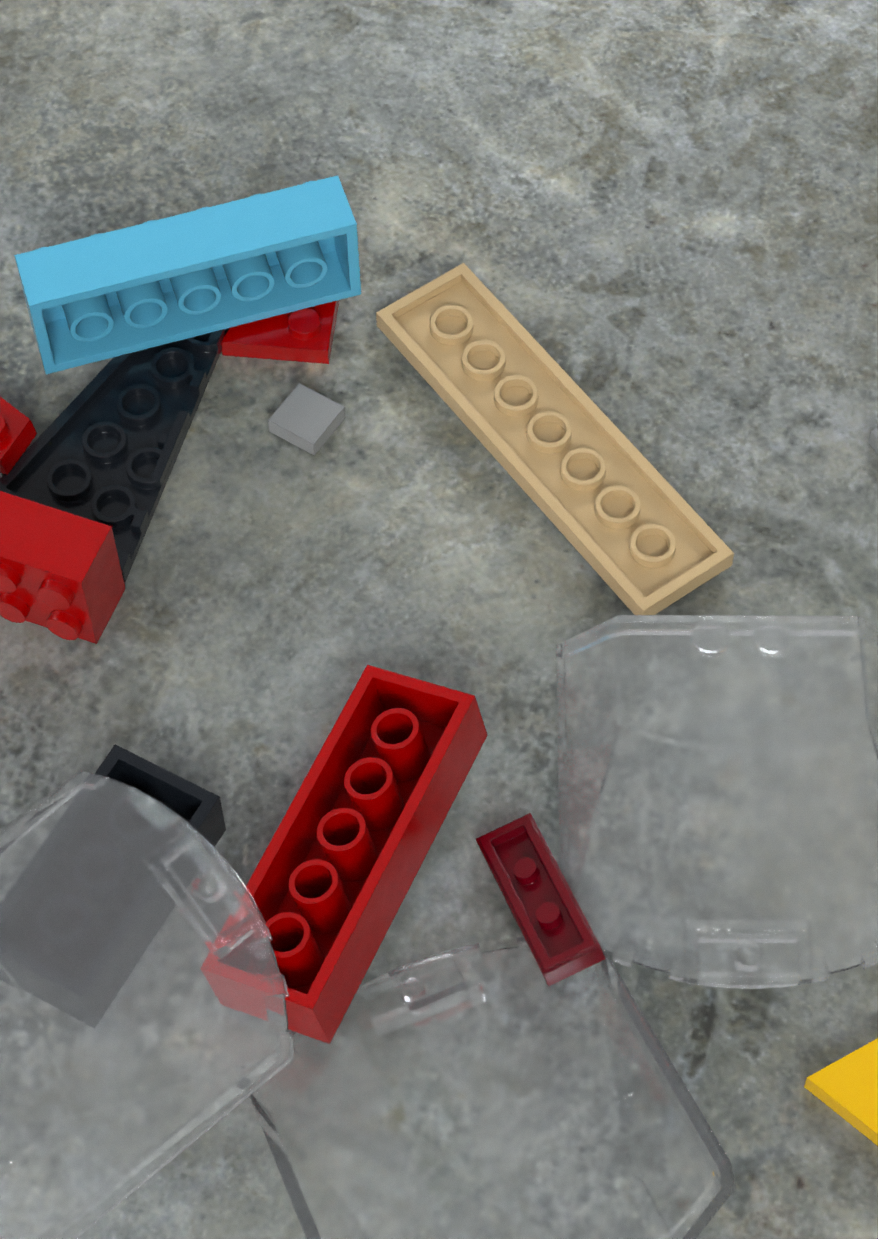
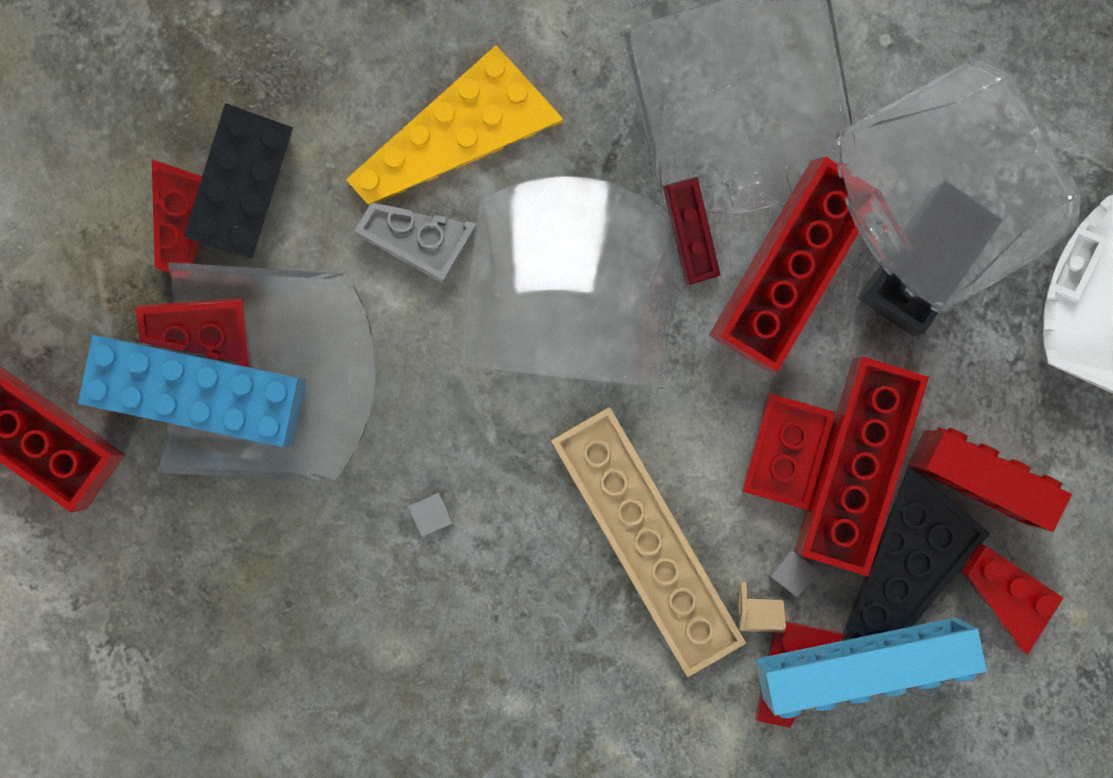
camera: 170 degrees left, 30 degrees up
(208, 564) = (861, 465): none -> red brick
(330, 581) = (788, 451): none -> red plate
(356, 355) = (759, 614): none -> tan bracket

